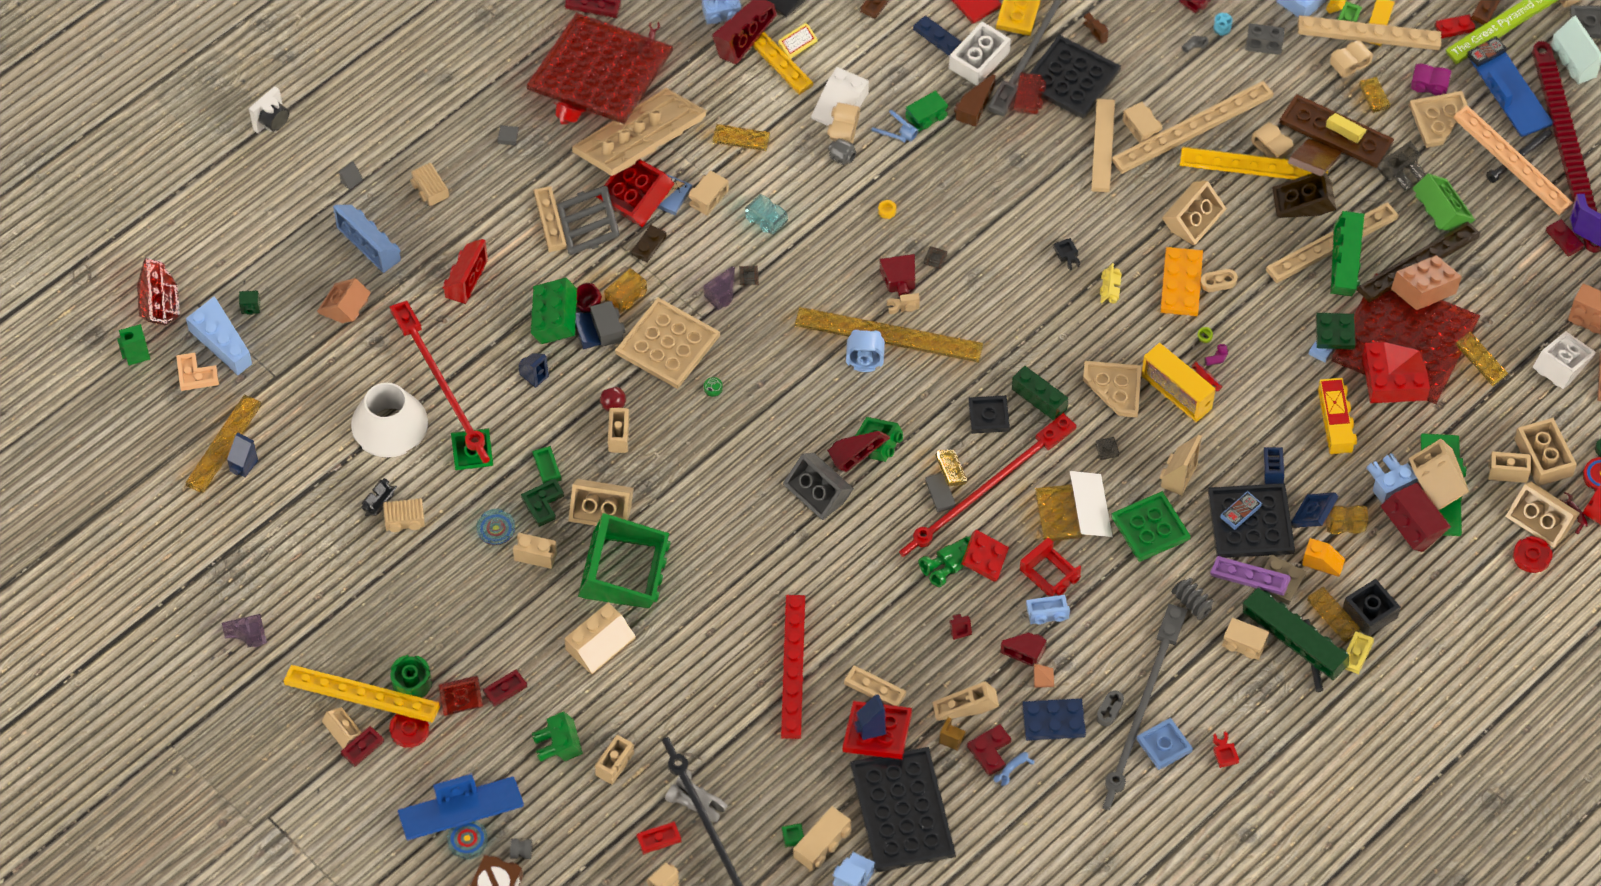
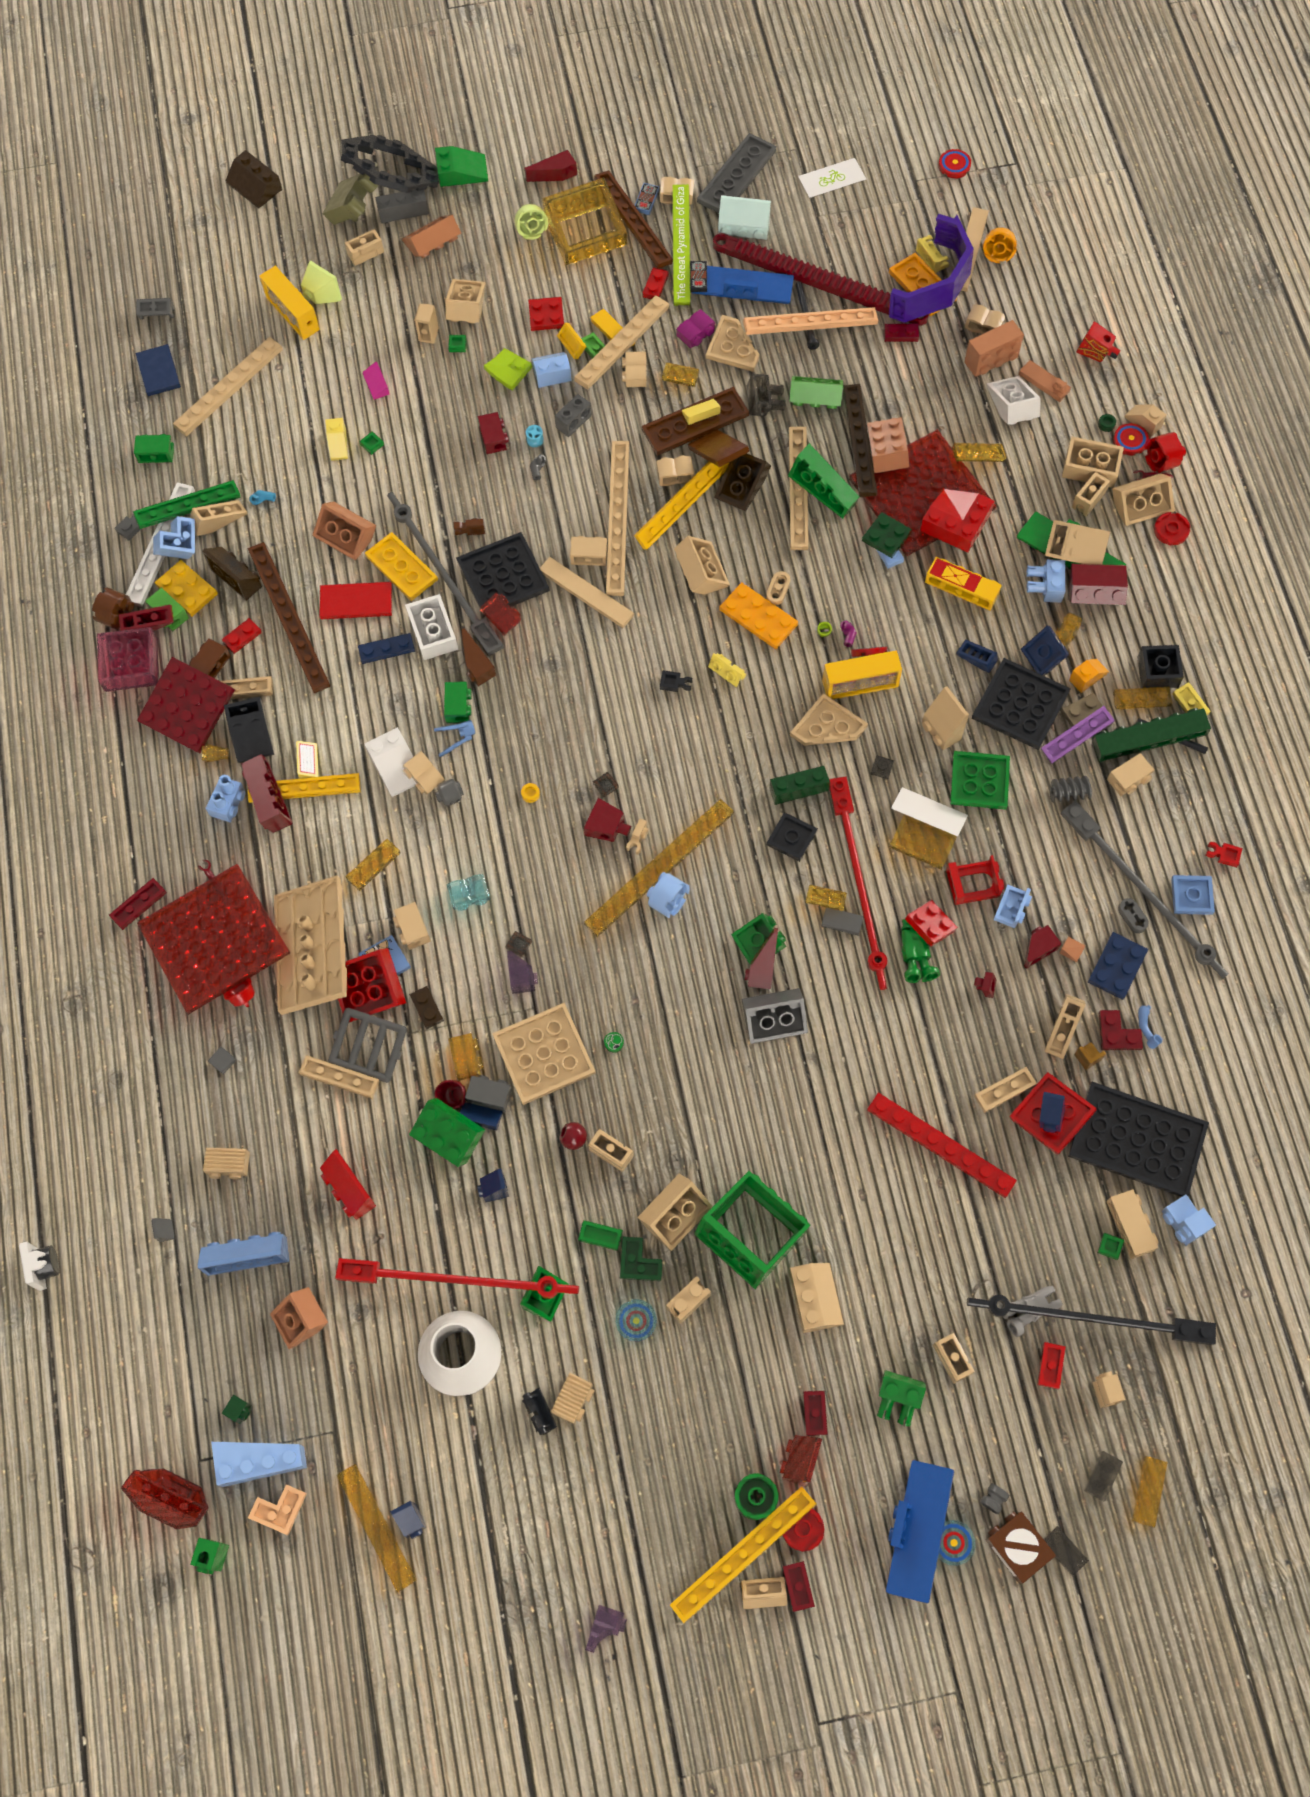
camera: 55 degrees left, 10 degrees up
(1241, 510) = (1011, 704): tile -> none

